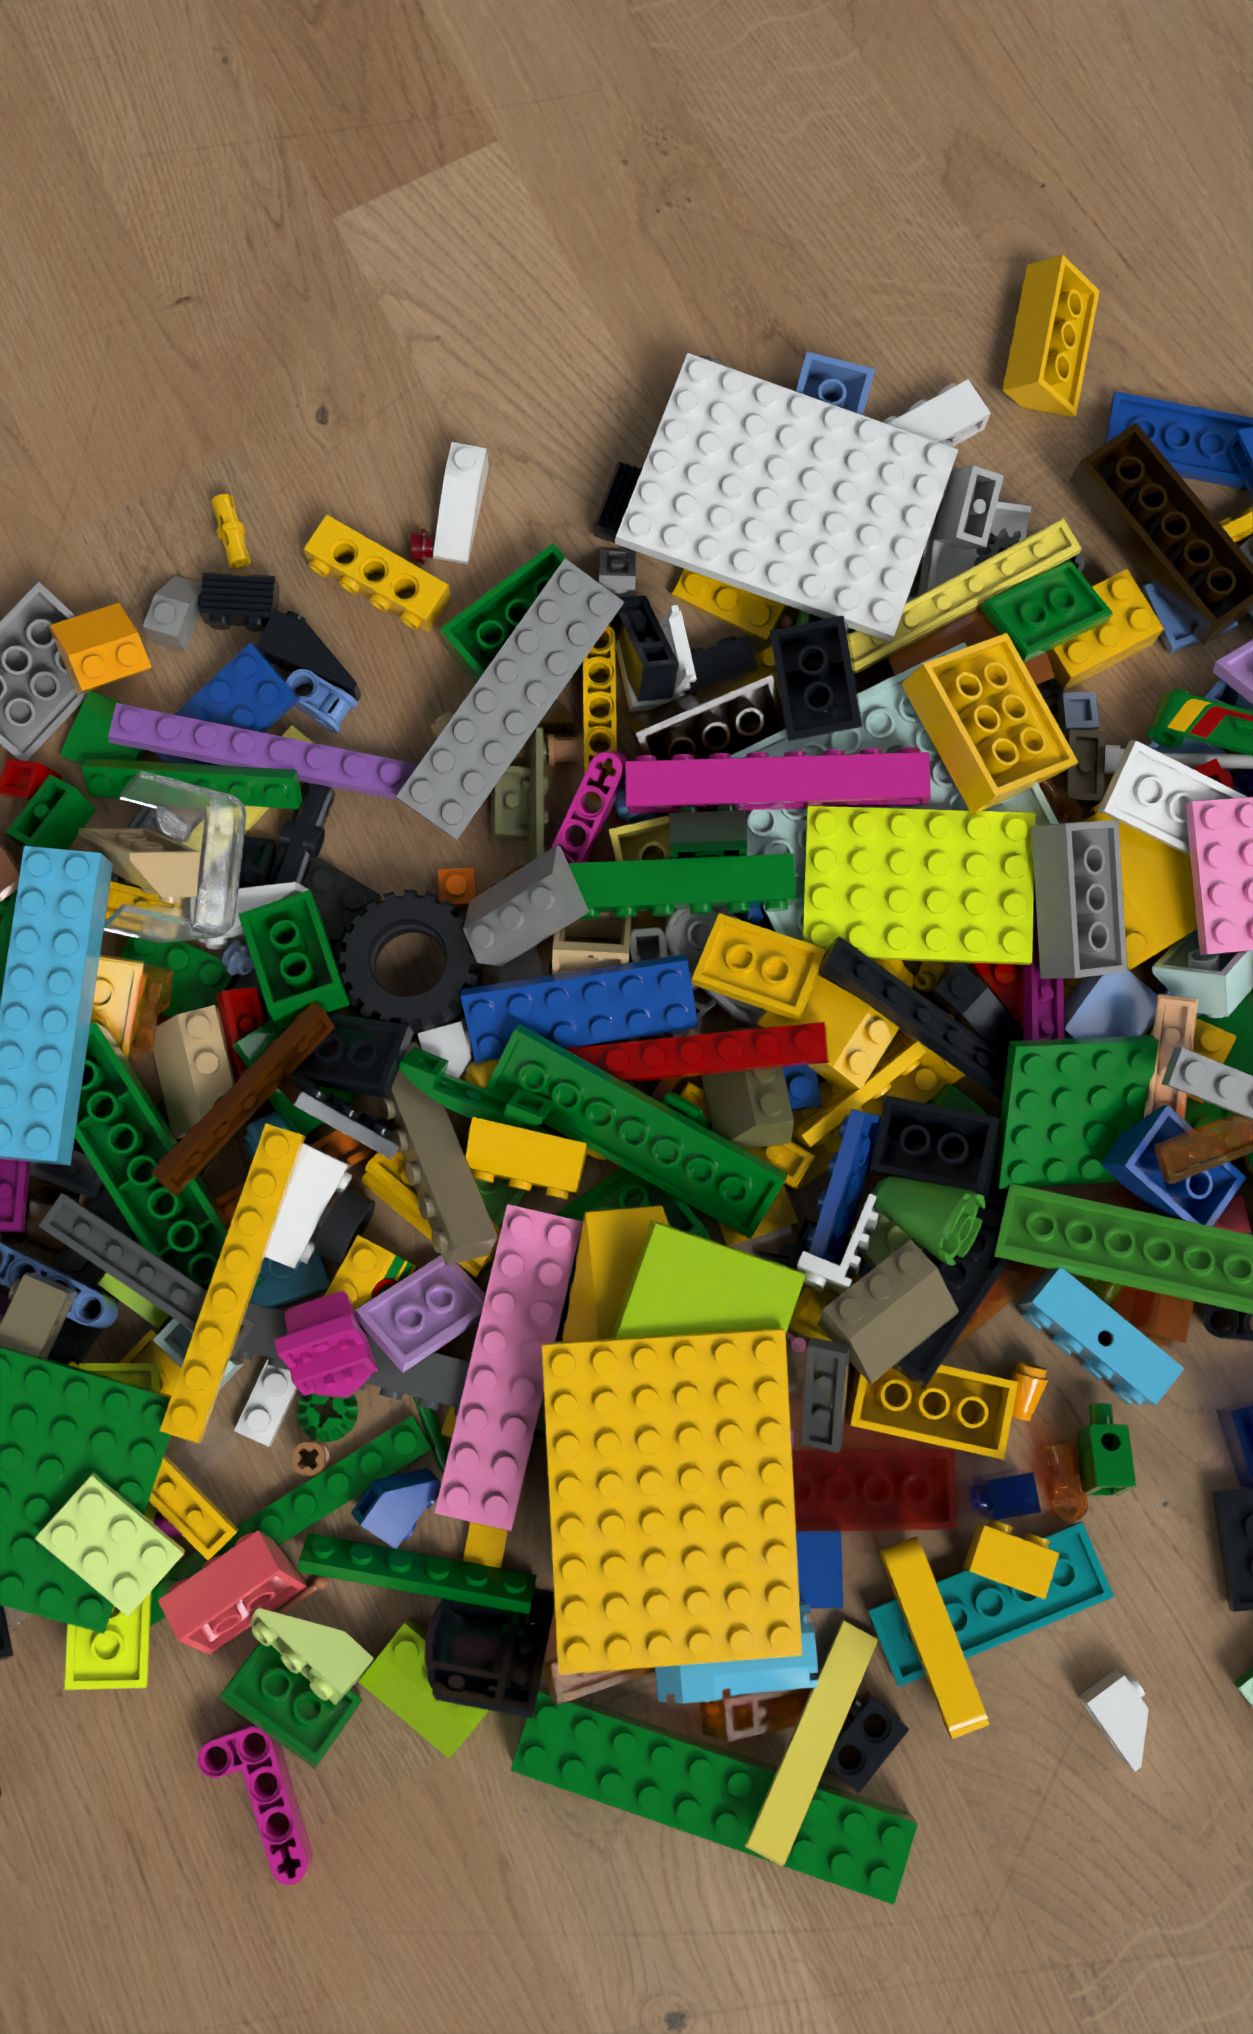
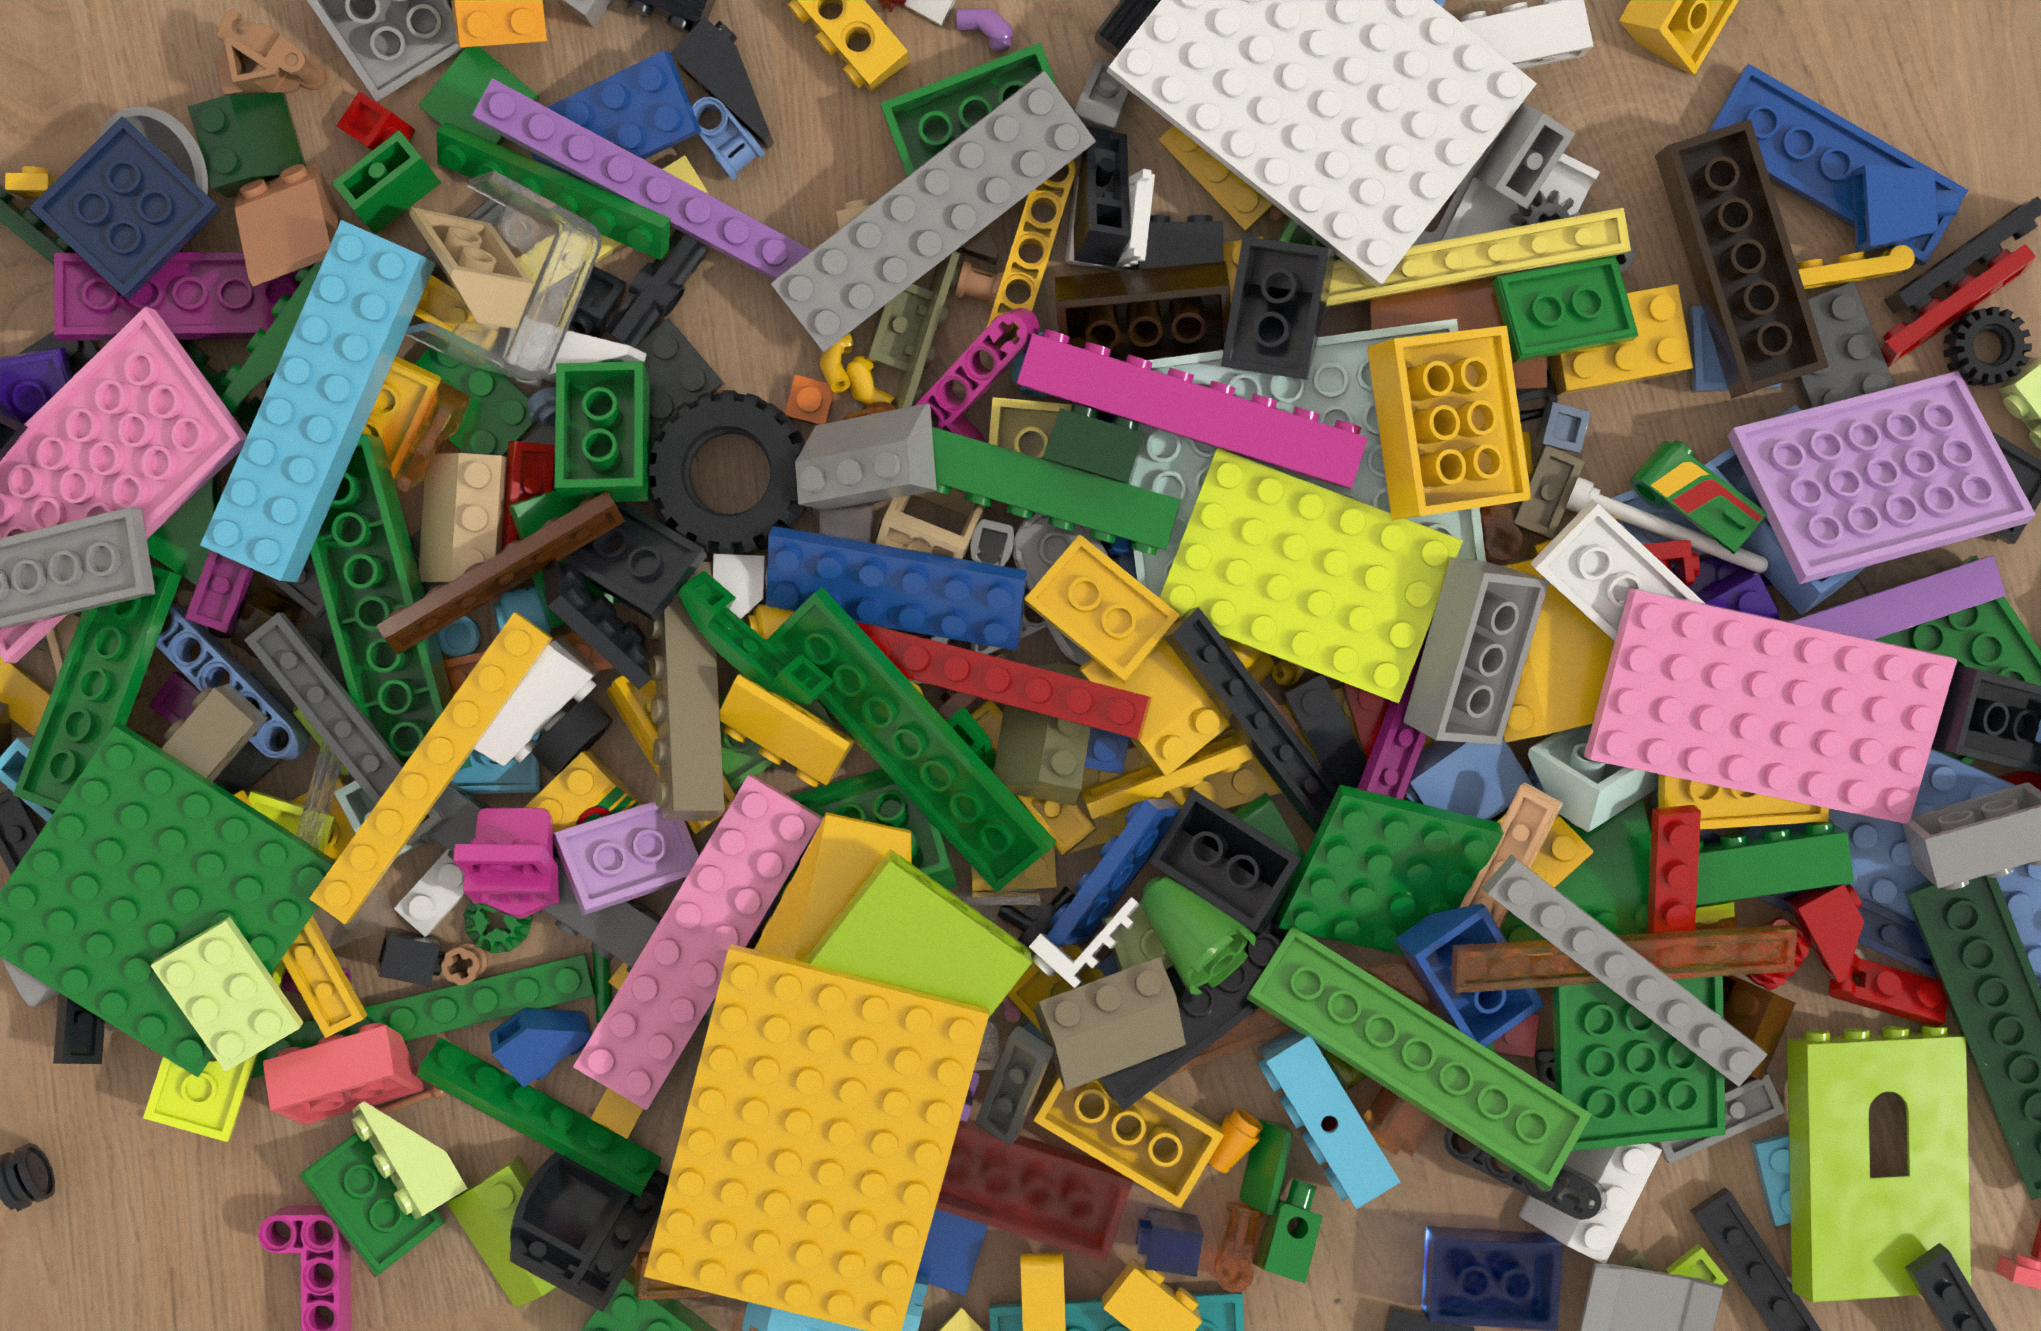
camera: 20 degrees right, 10 degrees up
(141, 1341) = (319, 796): none -> clear axle
(221, 1176) = (460, 637): none -> medium azure tile
(260, 1467) = (409, 957): none -> black brick
(465, 852) = (831, 364): none -> yellow arm
(495, 859) = (862, 384): none -> yellow arm
(504, 547) = (989, 23): none -> medium lavender arm
(1063, 1404) = (1266, 1167): none -> green slope

